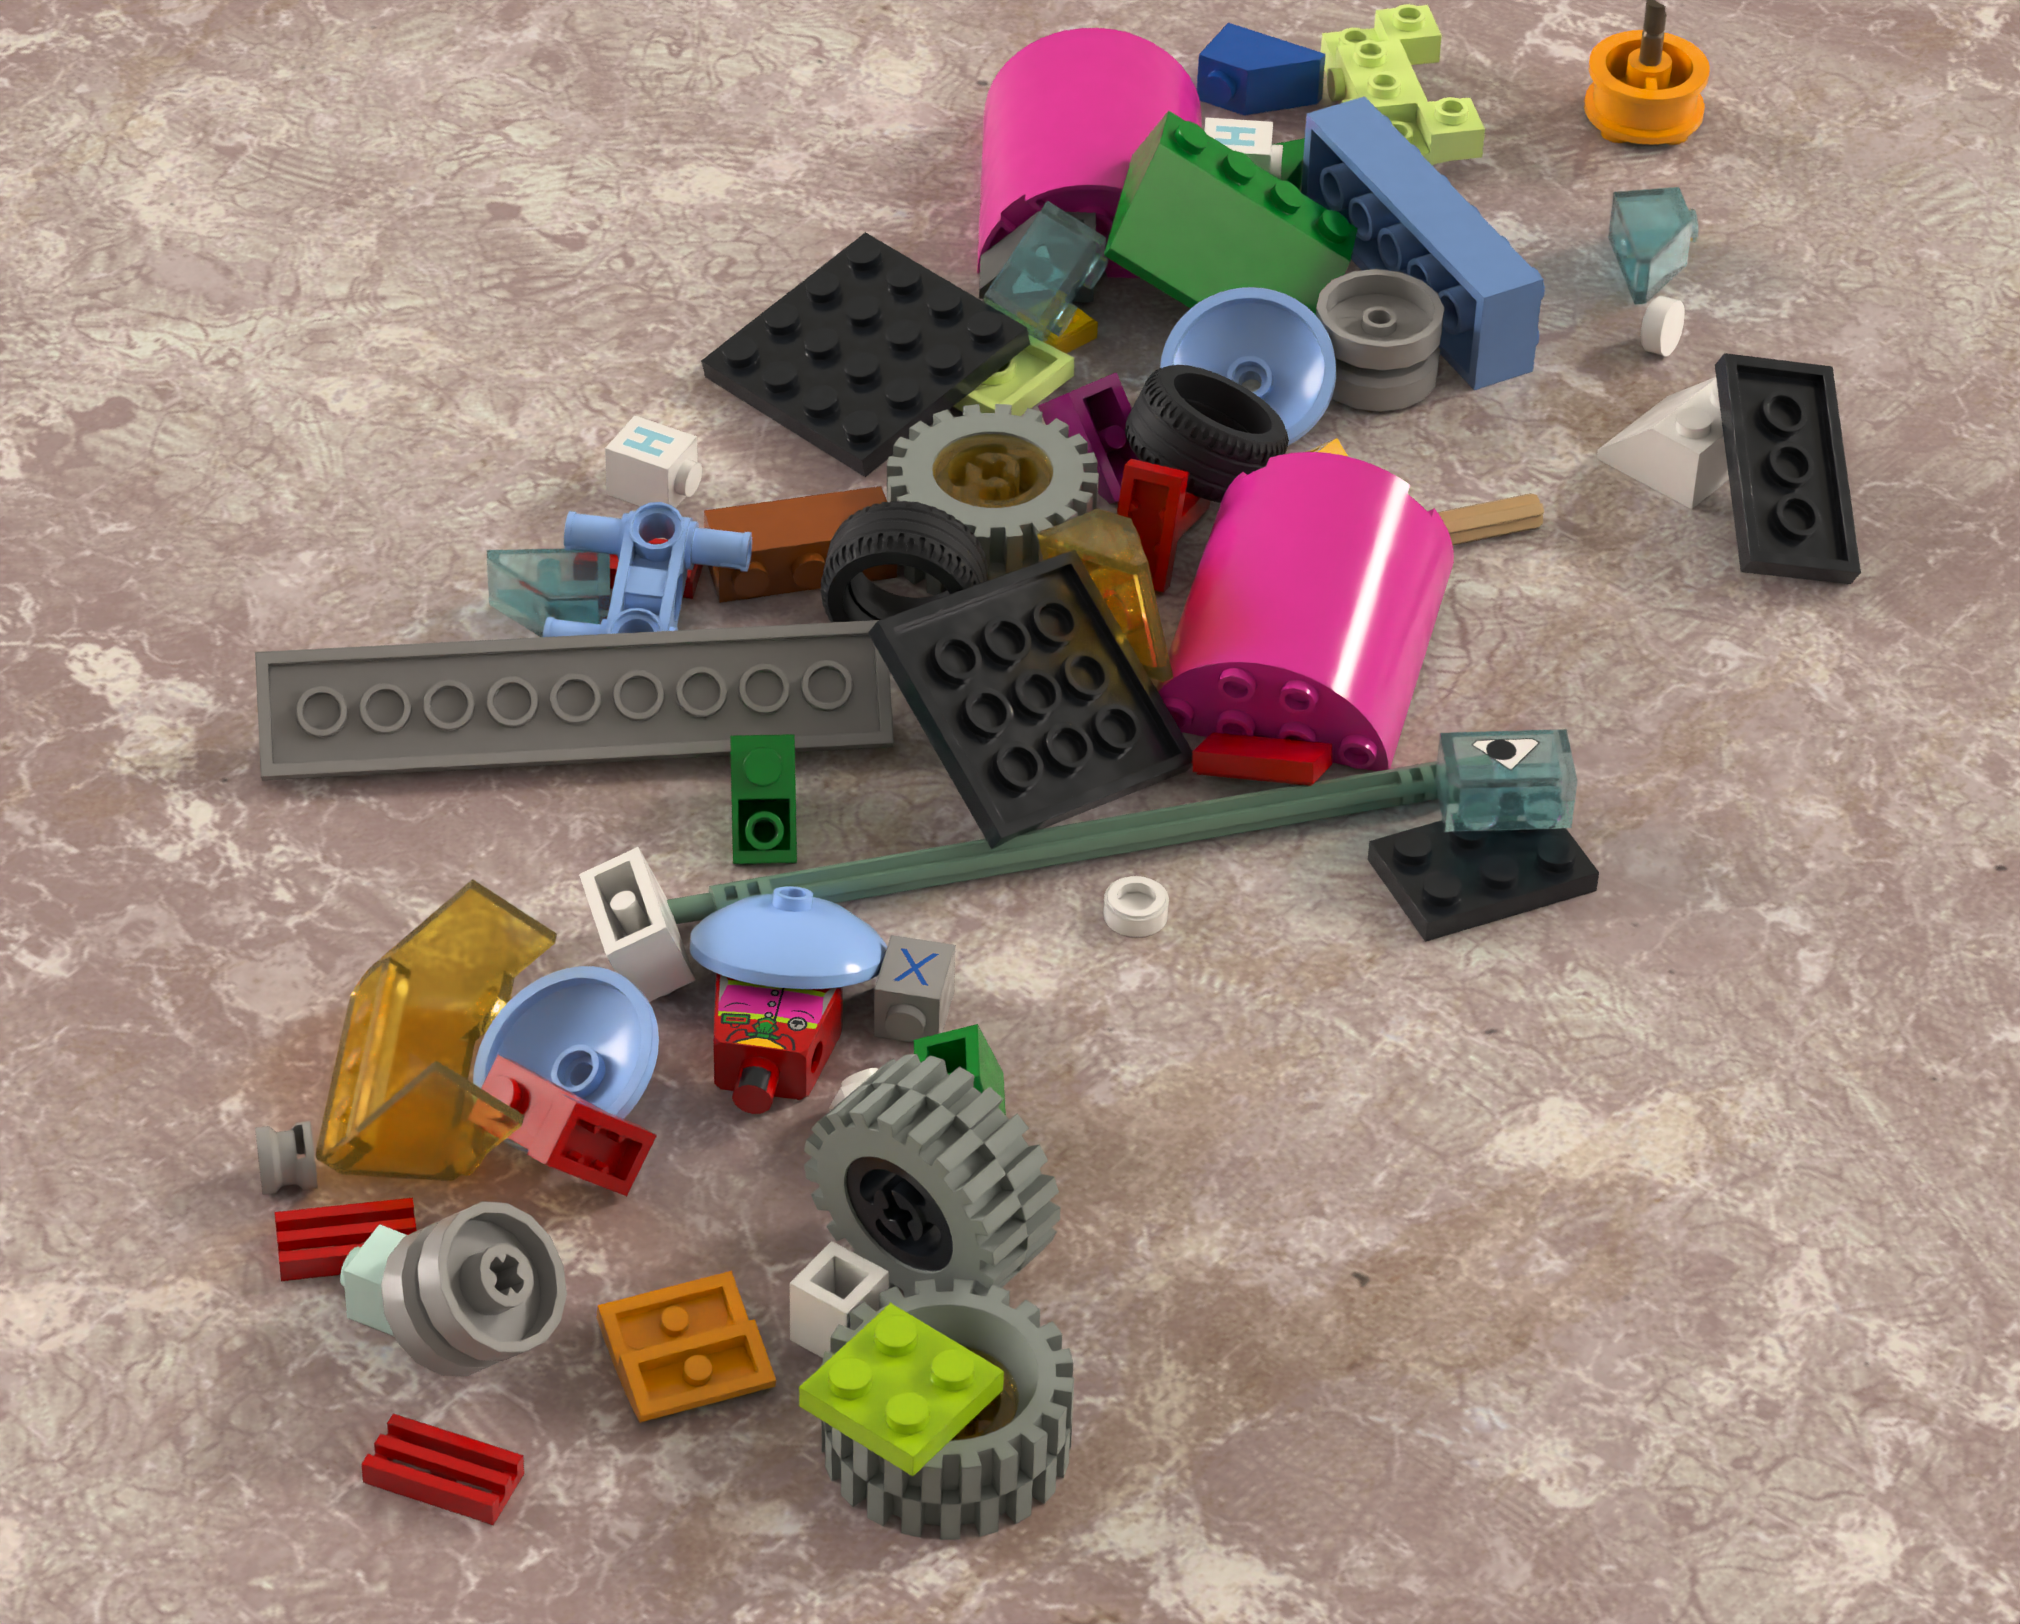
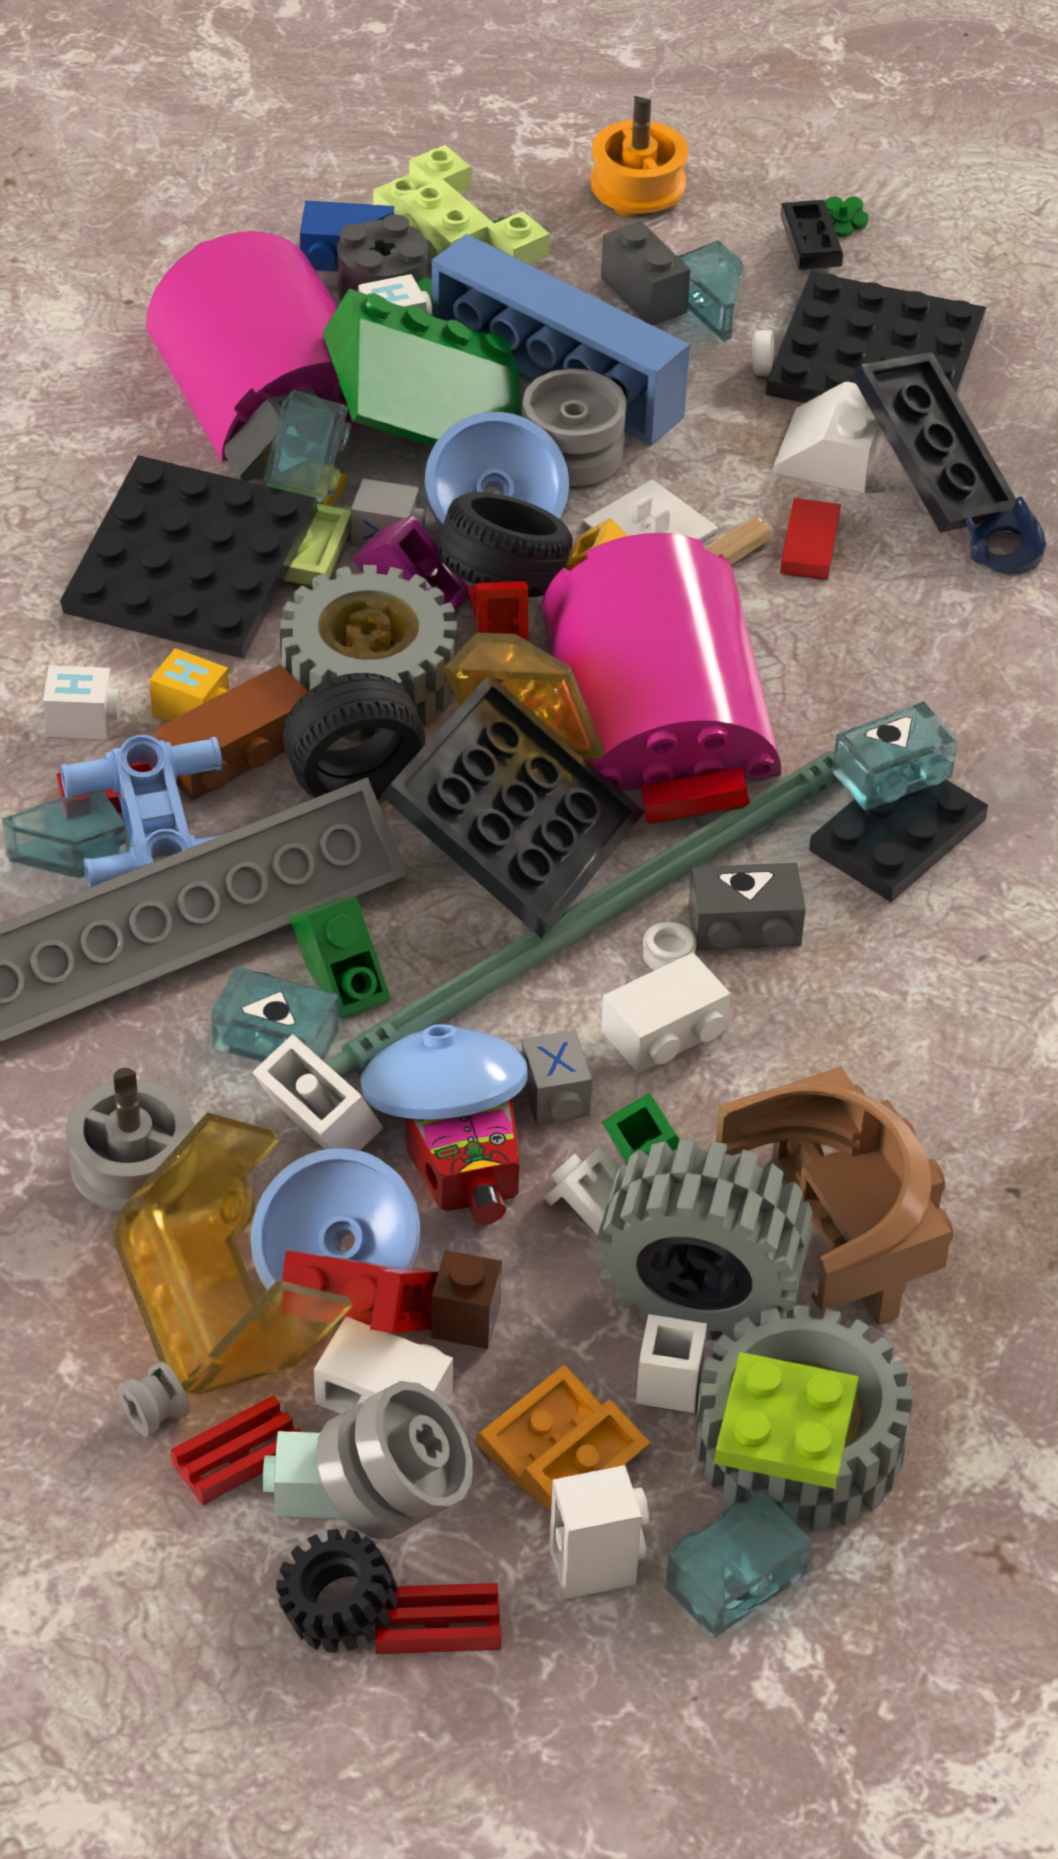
camera: 25 degrees left, 5 degrees up
(348, 1399) = (355, 1612): none -> black tyre
(402, 884) = (123, 1136): none -> light grey wheel
(572, 1221) = (368, 1361): none -> white brick
(643, 1434) = (597, 1531): none -> white brick
(668, 1172) = (466, 1299): none -> reddish brown brick
(674, 838) = (263, 1011): none -> clear light blue brick
(773, 474) = (184, 684): none -> yellow brick
(785, 1527) = (737, 1563): none -> clear light blue brick
(1079, 965) = (665, 1012): none -> white brick
(1104, 353) = (381, 505): none -> light grey brick
(1167, 1213) = (868, 1201): none -> medium nougat piece
(1243, 888) = (746, 906): none -> dark grey brick
(1276, 94) = (380, 252): none -> dark grey brick
(1427, 461) = (653, 511): none -> white piece
(1577, 203) = (645, 273): none -> dark grey brick
(1588, 537) = (810, 538): none -> red tile
(1798, 315) = (862, 323): none -> black plate
(1810, 215) = (811, 234): none -> black plate
(1830, 631) = (1018, 520): none -> dark blue piece
(1867, 206) = (846, 215): none -> green plant

